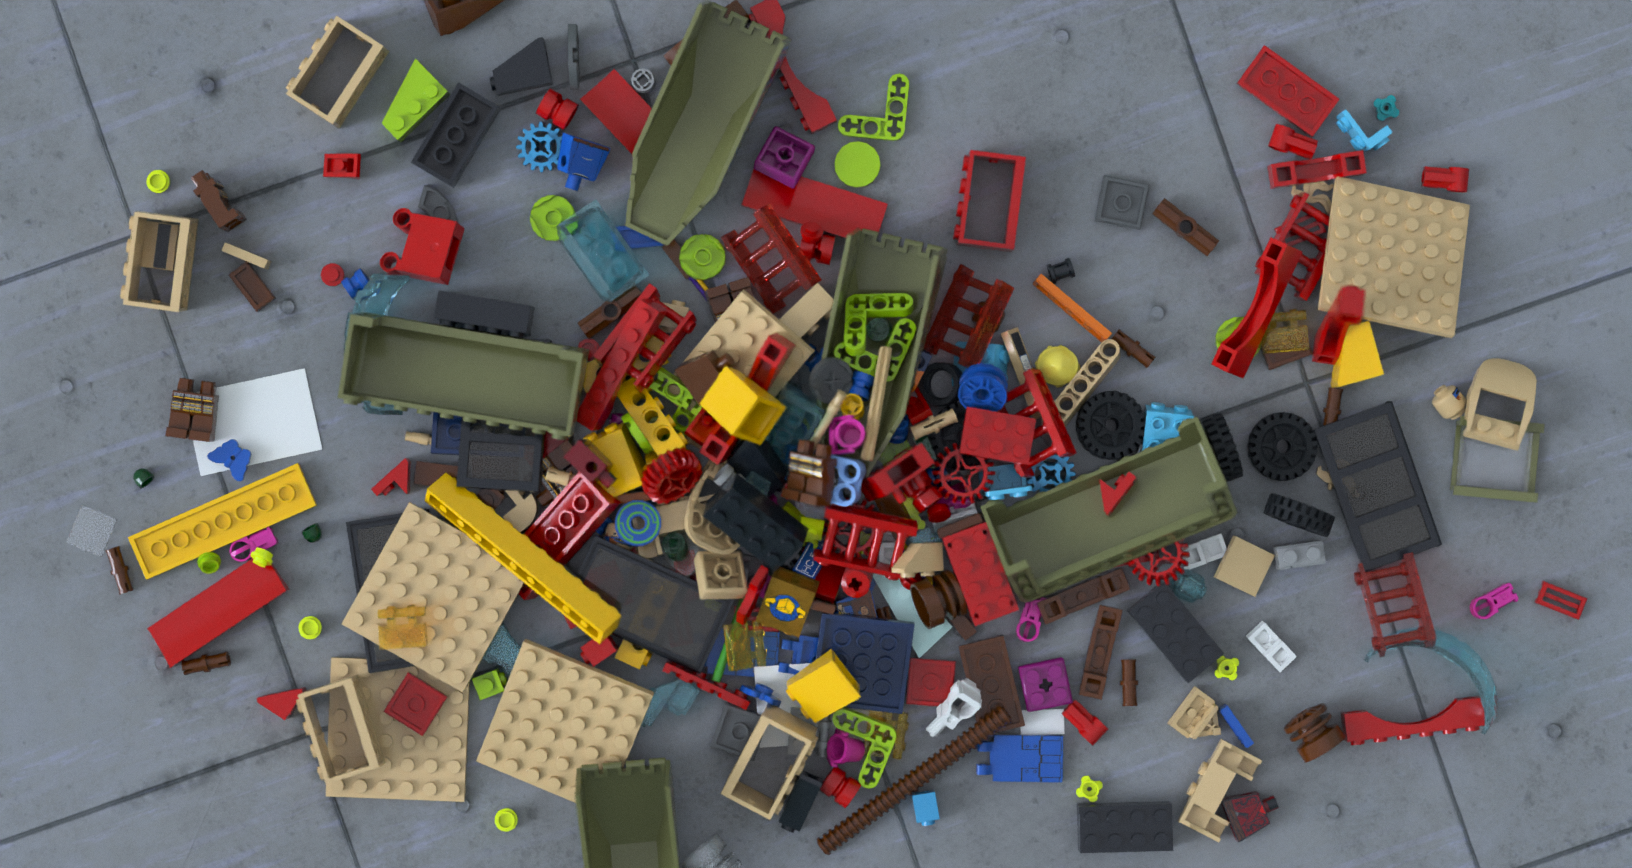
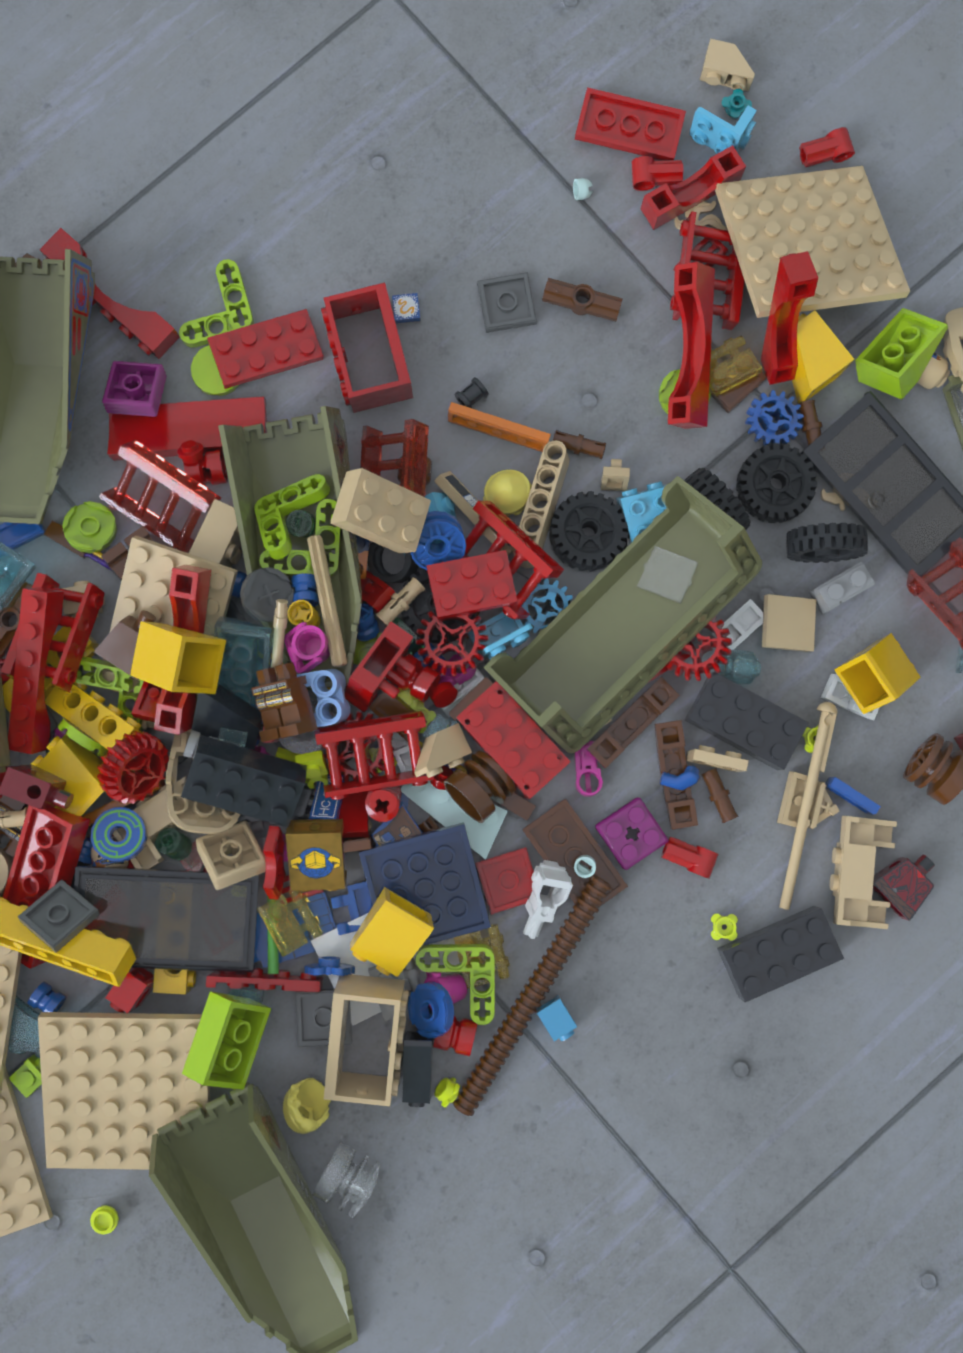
camera: 20 degrees left, 5 degrees down
(525, 629) = (46, 999): none -> blue wheel
(571, 570) = (58, 915): none -> dark grey tile
(663, 718) = (226, 1041): none -> lime brick
(701, 794) = (305, 1106): none -> light yellow hair
(816, 828) = (447, 1091): none -> neon yellow plate
(839, 763) = (442, 1007): none -> blue tile
(905, 163) = (265, 348): none -> red plate
(948, 353) = (380, 511): none -> tan brick
(993, 697) = (583, 871): none -> light aqua hinge
(1023, 758) = (640, 922): blue tile -> none
(1036, 174) = (406, 308): none -> tile
(1043, 722) = (645, 875): white sticker -> none
(1105, 659) = (683, 781): none -> blue arm
(1112, 497) = (622, 601): red slope -> none
(1130, 647) = (706, 756): none -> tan plate
(1151, 388) = (615, 477): none -> tan tile
(1159, 489) = (667, 574): none -> clear piece
(1218, 689) = (817, 764): none -> tan bar
(1224, 130) = (581, 188): none -> light aqua hinge
(1297, 636) = (878, 674): none -> yellow slope
(1309, 384) = (783, 420): none -> blue gear
(1389, 71) = (726, 66): none -> tan slope
(1428, 380) = (900, 353): none -> lime slope

